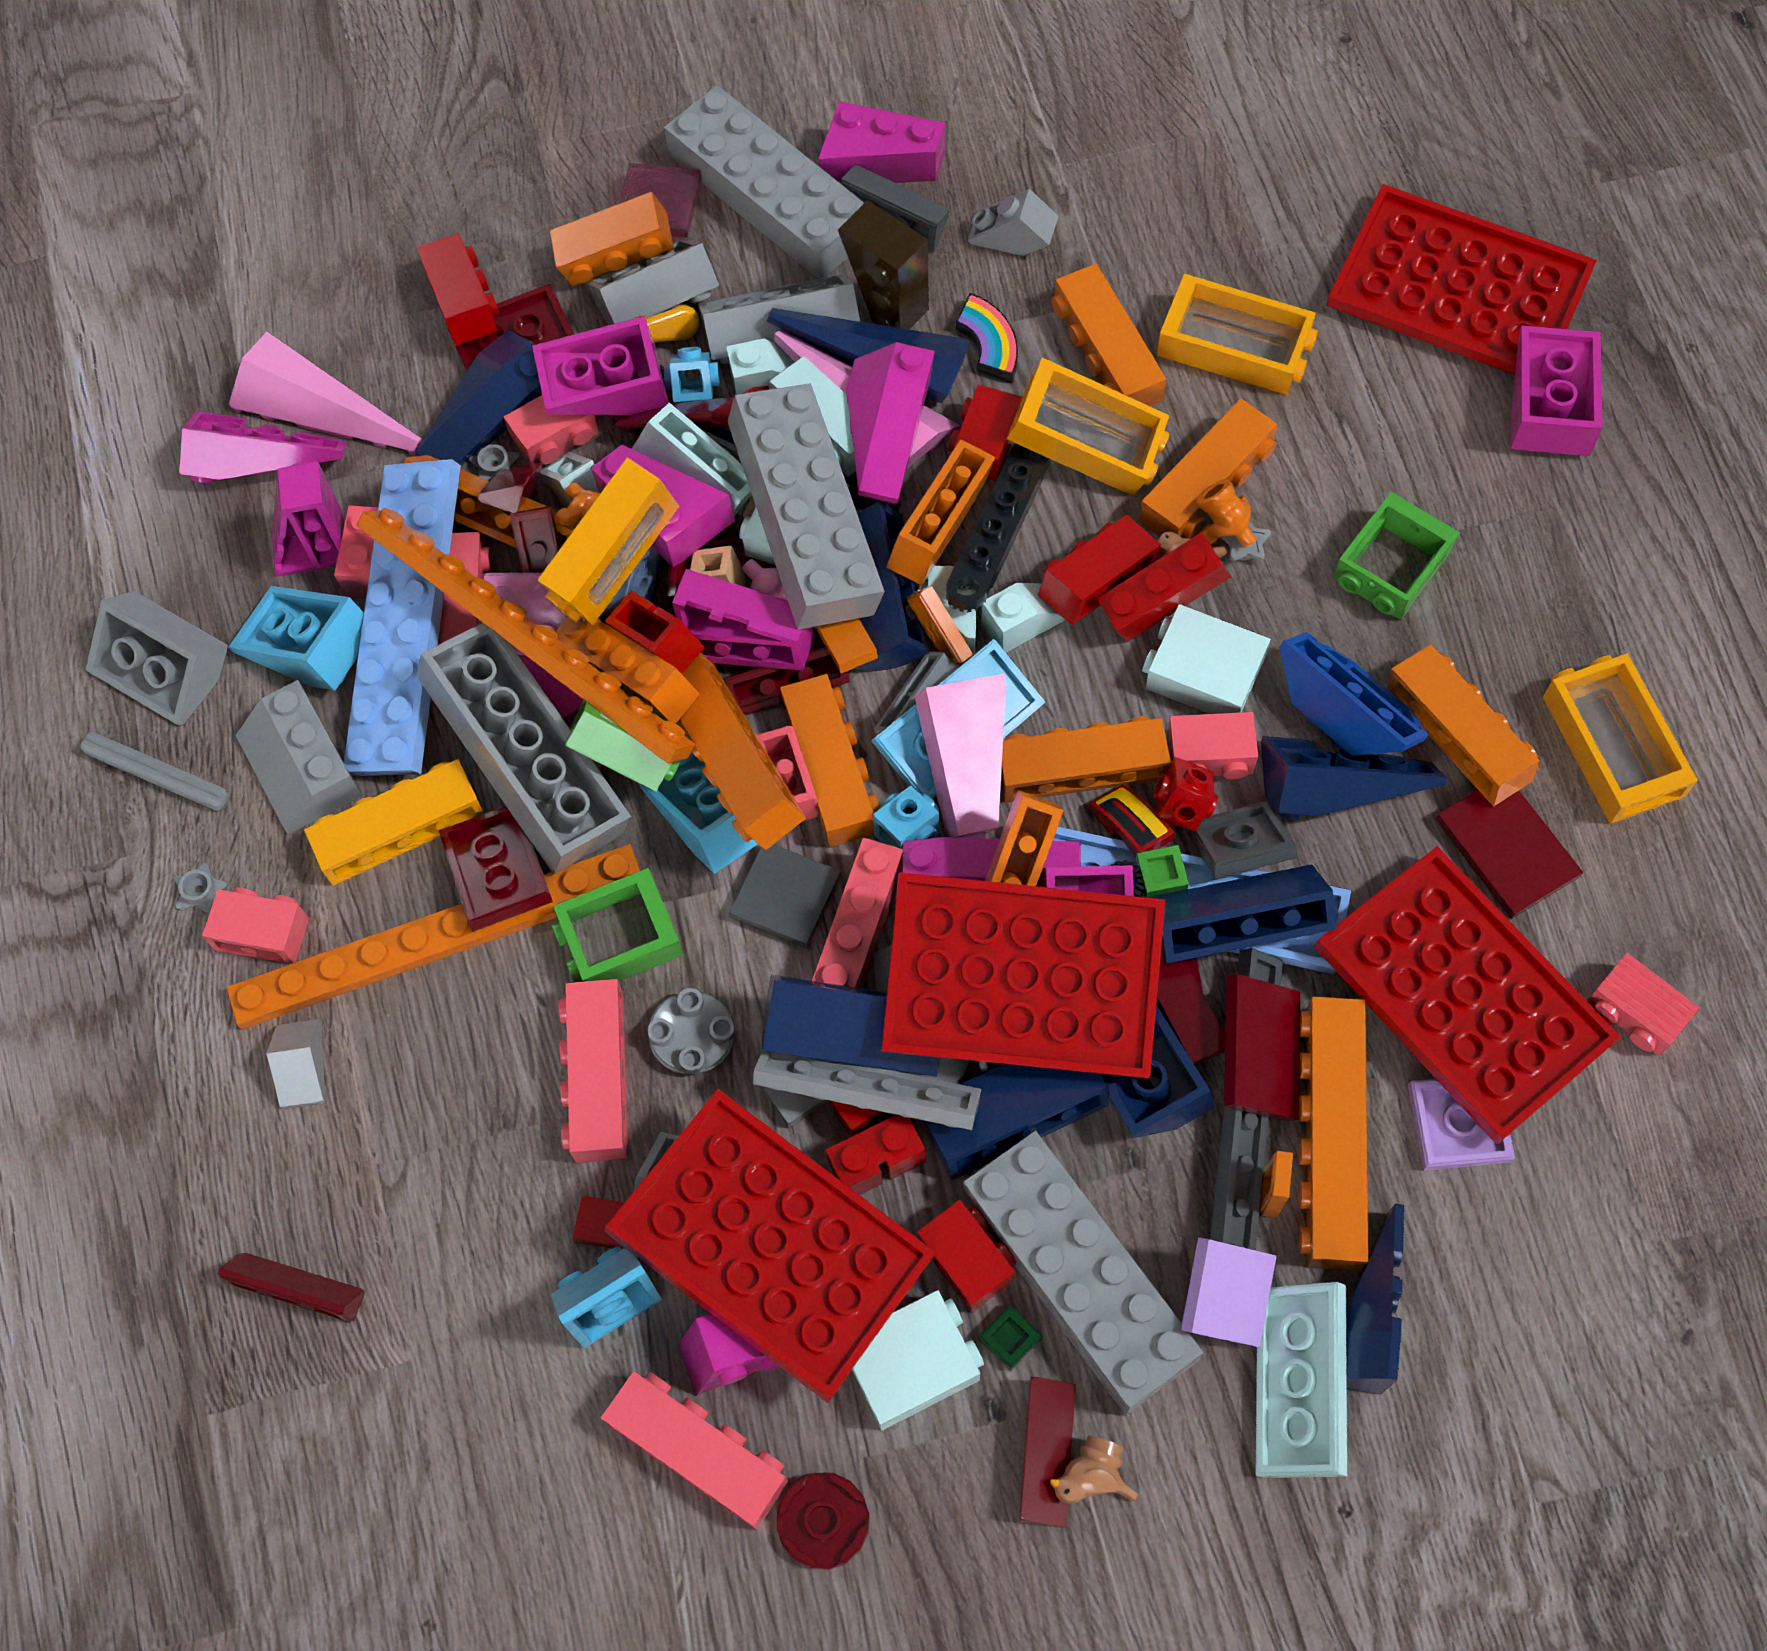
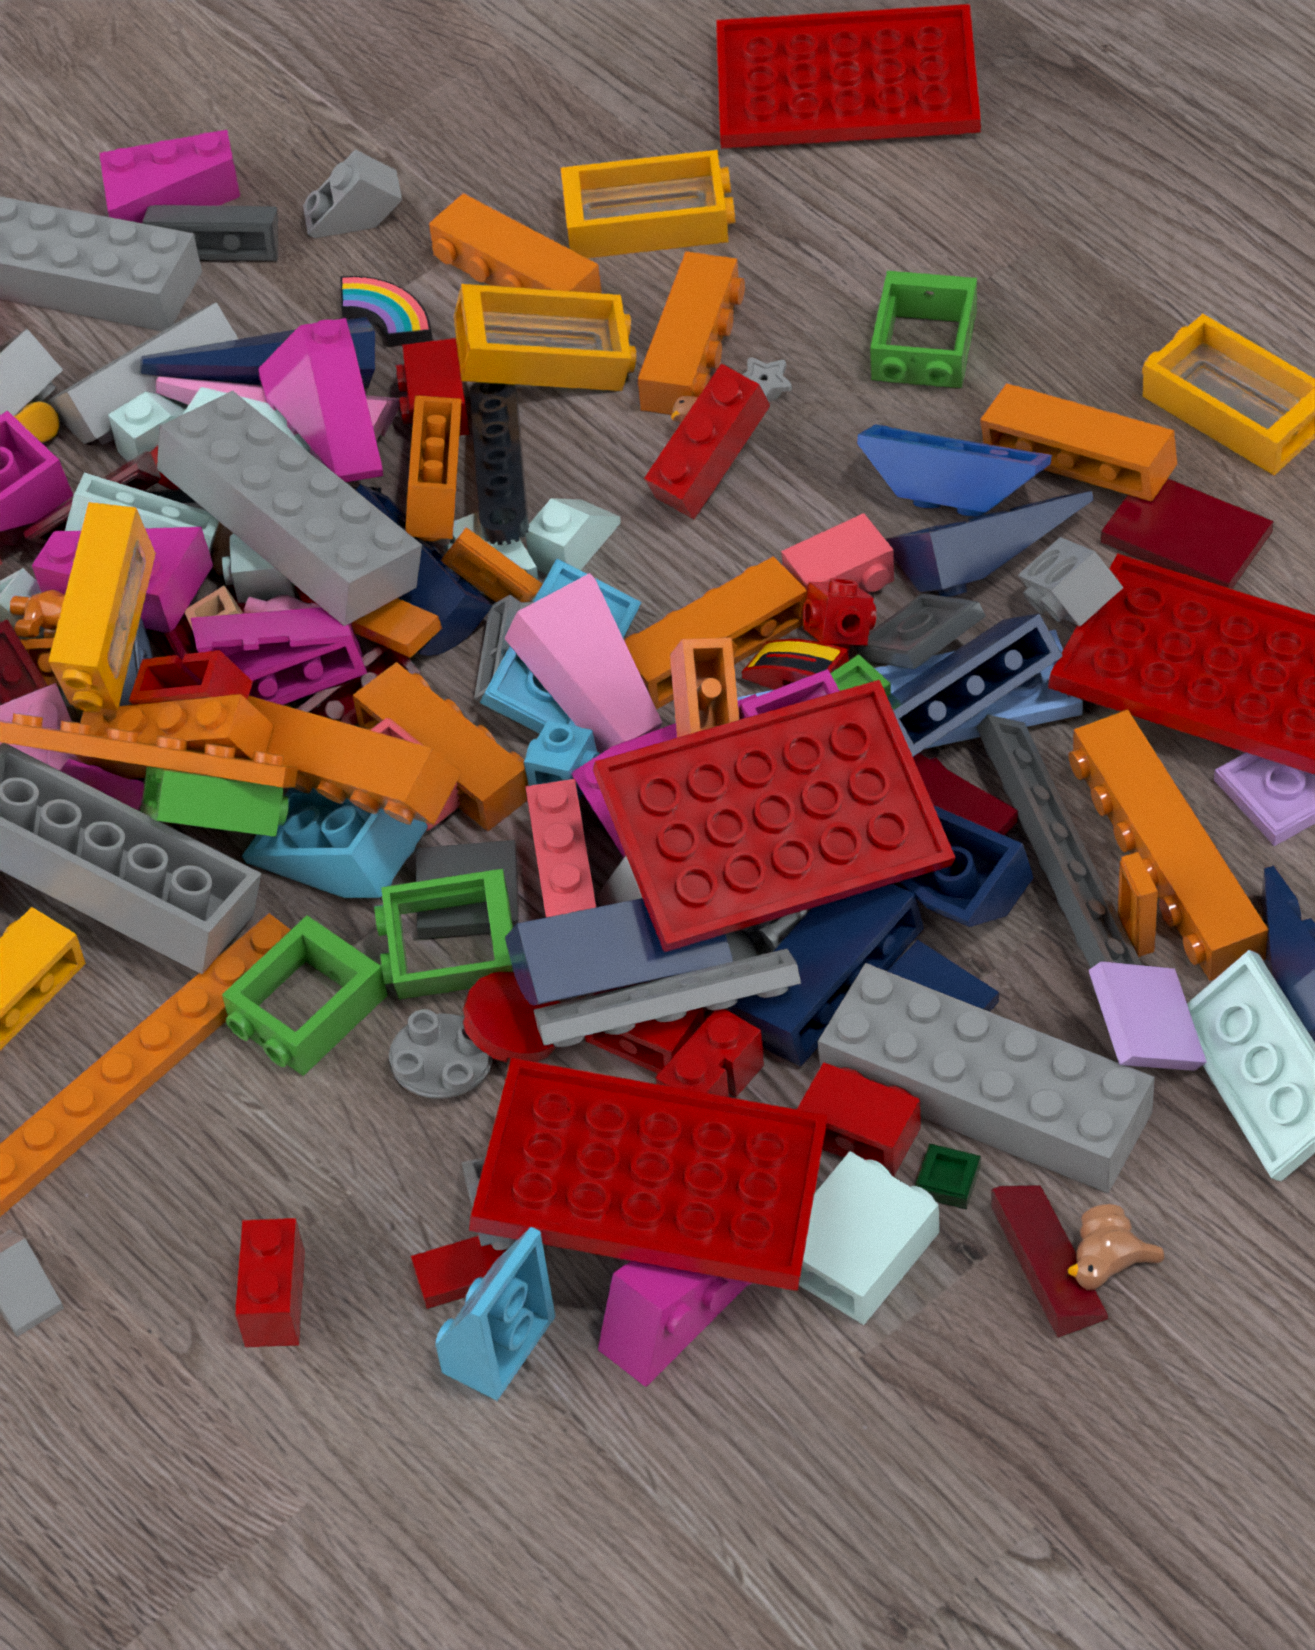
camera: 25 degrees left, 15 degrees down
(293, 1286) = (133, 1494): dark red slope -> none
(468, 1168) = (270, 1282): none -> red brick
(494, 868) = (130, 994): dark red tile -> none
(595, 1071) = (358, 1133): coral brick -> none
(688, 389) = (92, 447): medium azure brick -> none
(695, 1449) = (677, 1423): coral brick -> none
(706, 906) = (439, 894): none -> bright green window
(740, 1028) = (503, 1020): none -> red tile
(792, 1105) = (592, 1056): light grey tile -> none
(823, 1521) = (852, 1431): dark red tile -> none
(888, 266) = (246, 267): dark brown wedge -> none
(1093, 1166) = (938, 973): none -> dark blue tile
(1096, 567) = (619, 459): red brick -> none
(1205, 662) = (785, 495): light aqua brick -> none
(1228, 512) = (727, 346): orange piece -> none
(1262, 1048) = (1050, 797): dark red tile -> none
(1379, 860) = (1069, 582): none -> light grey brick
(1557, 391) = (999, 126): dark pink slope -> none

